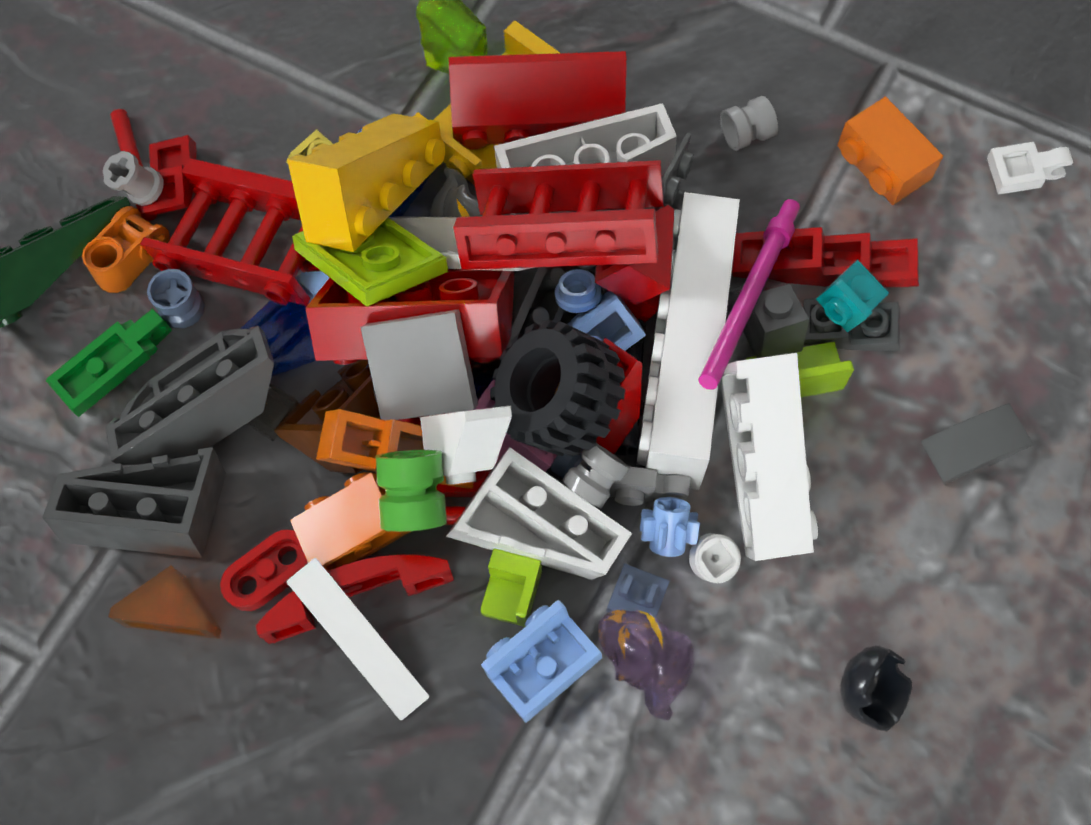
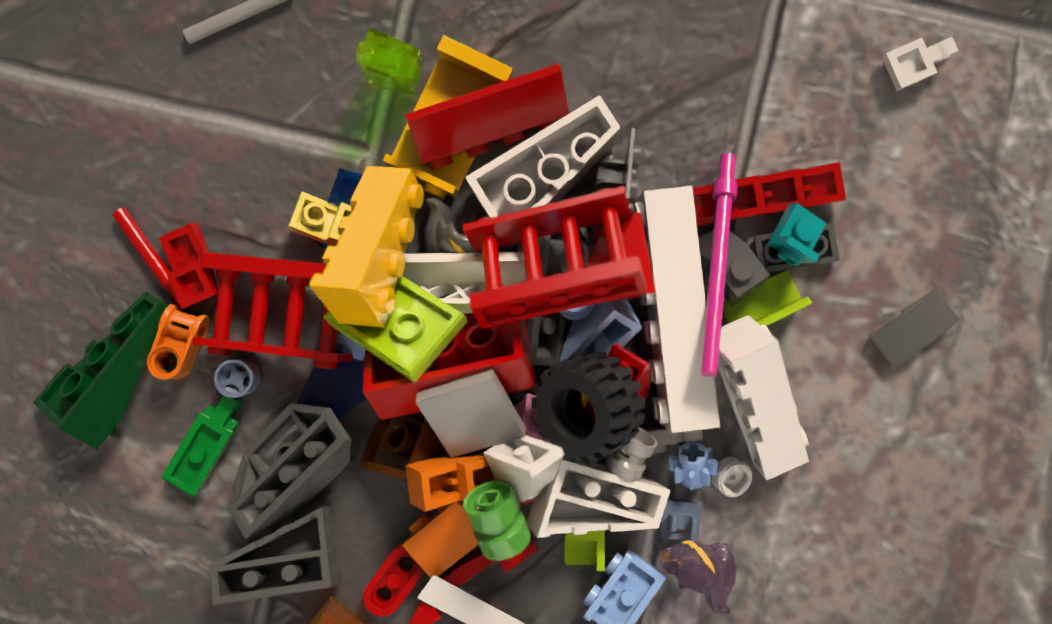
camera: 15 degrees left, 20 degrees up
(139, 182) = (159, 290): light grey bush -> none
(749, 123) = (675, 79): light grey wheel -> none
(875, 688) = (872, 547): black hair -> none
(889, 150) = (799, 78): orange brick -> none

